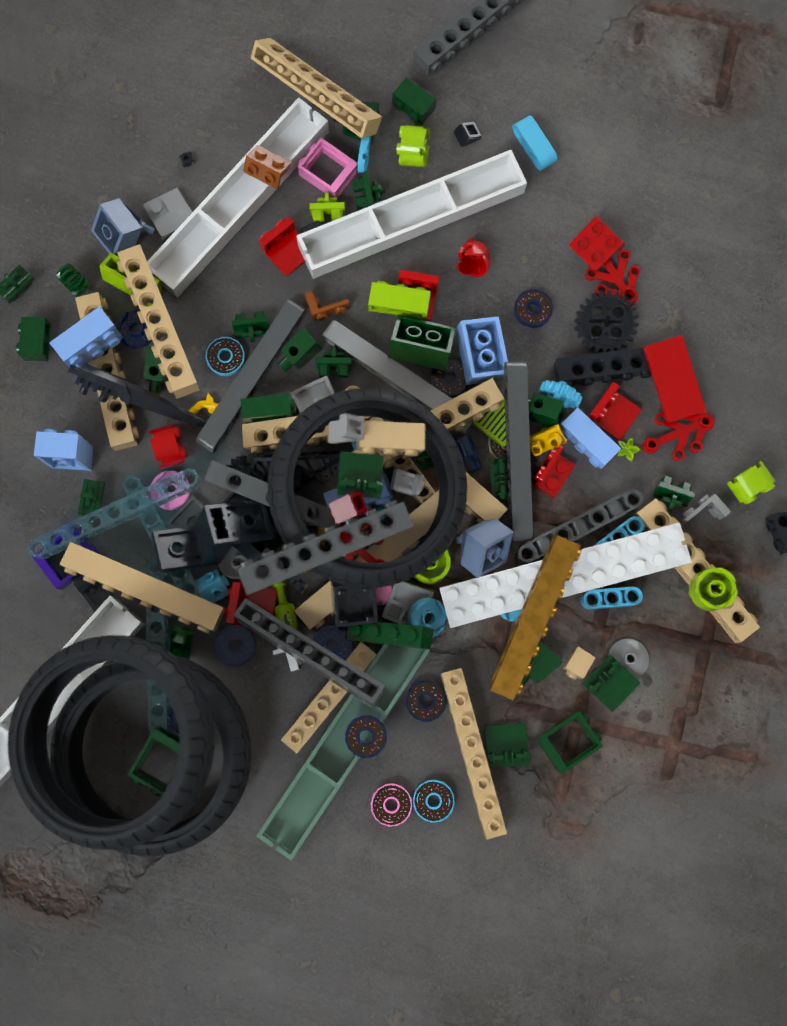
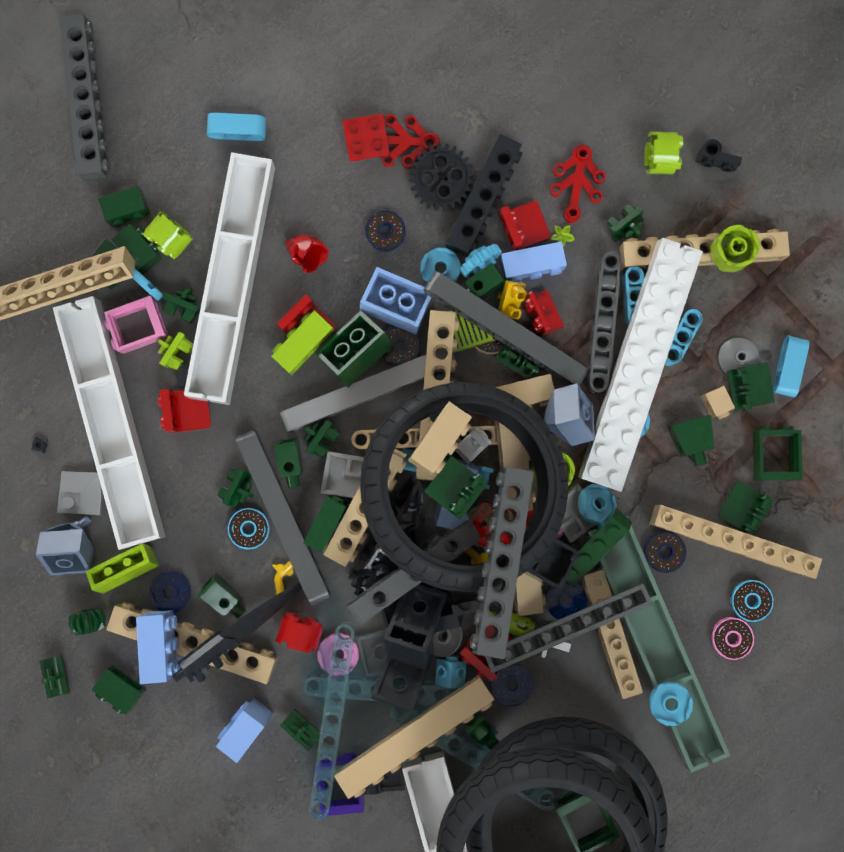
camera: 55 degrees left, 5 degrees up
(133, 259) = (108, 554): tan brick -> none
(266, 166) = (99, 379): dark orange bracket -> none
(290, 785) = (661, 694): none -> medium azure tile
(323, 313) = (255, 419): dark orange bracket -> none
(346, 429) = (411, 475): light grey bracket -> none
(348, 507) = (480, 518): brick -> none
(378, 732) = (677, 634): tile -> none
(388, 132) = (142, 252): none -> dark green brick
(467, 133) = (186, 179): black slope -> none
(469, 453) = (477, 373): dark blue hinge -> none
(534, 616) = (661, 414): pearl gold brick -> none
(543, 363) = (443, 256): none -> medium azure tile
(651, 705) = (790, 366): none -> medium azure beam
(674, 379) = (531, 154): red tile -> none
(715, 505) = (661, 196): light grey bracket -> none

